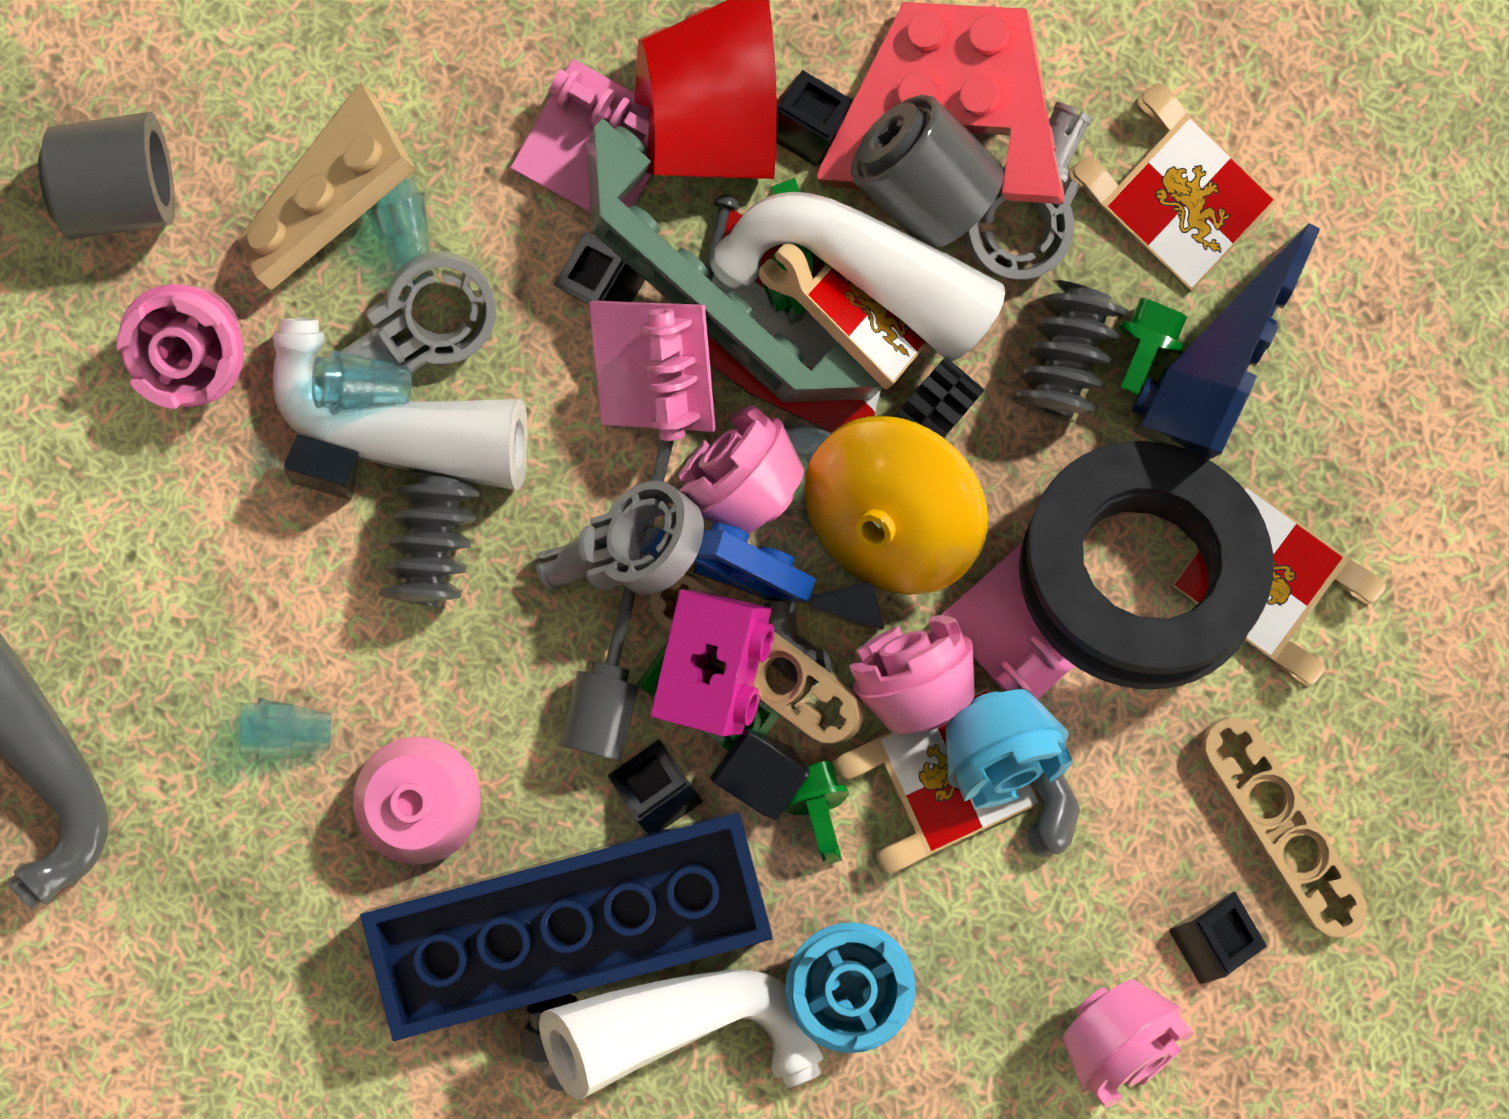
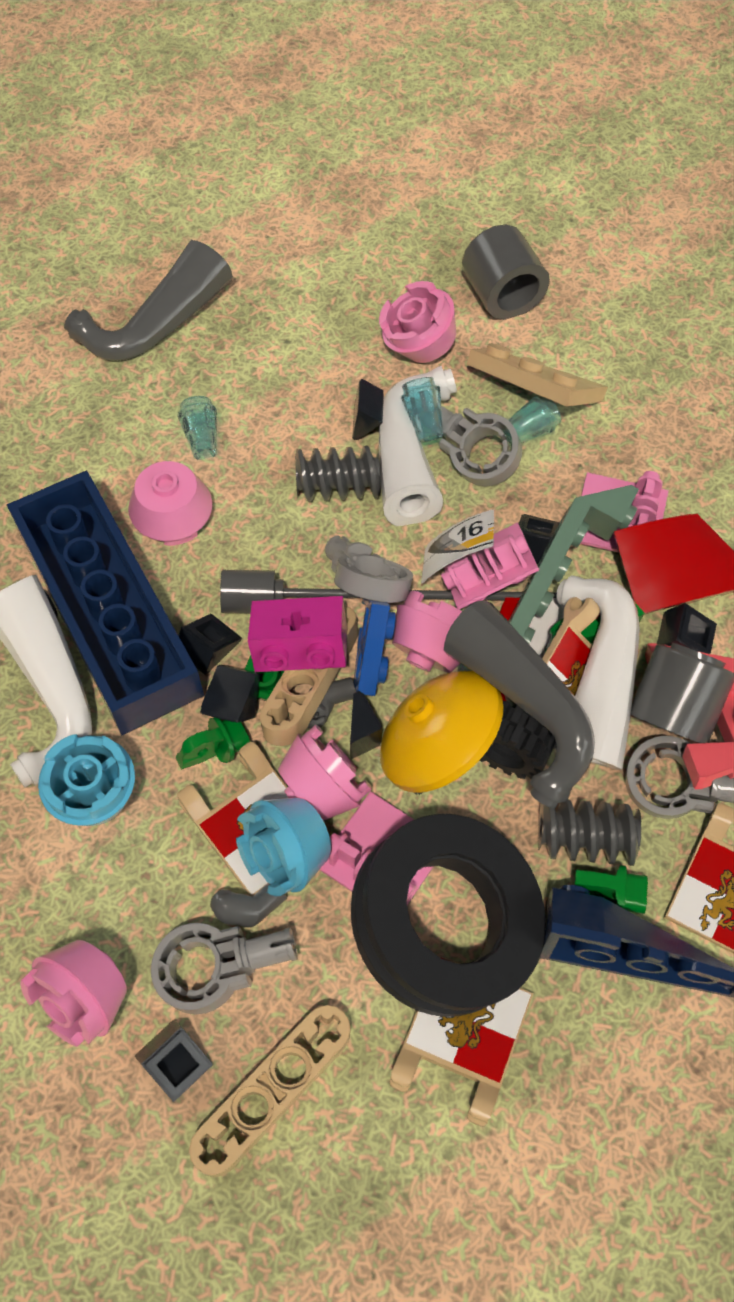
camera: 80 degrees right, 25 degrees down
(609, 399) = (458, 541): none -> sticker
(846, 396) = (499, 654): none -> dark grey animal
(1121, 821) = (227, 976): none -> light grey pin

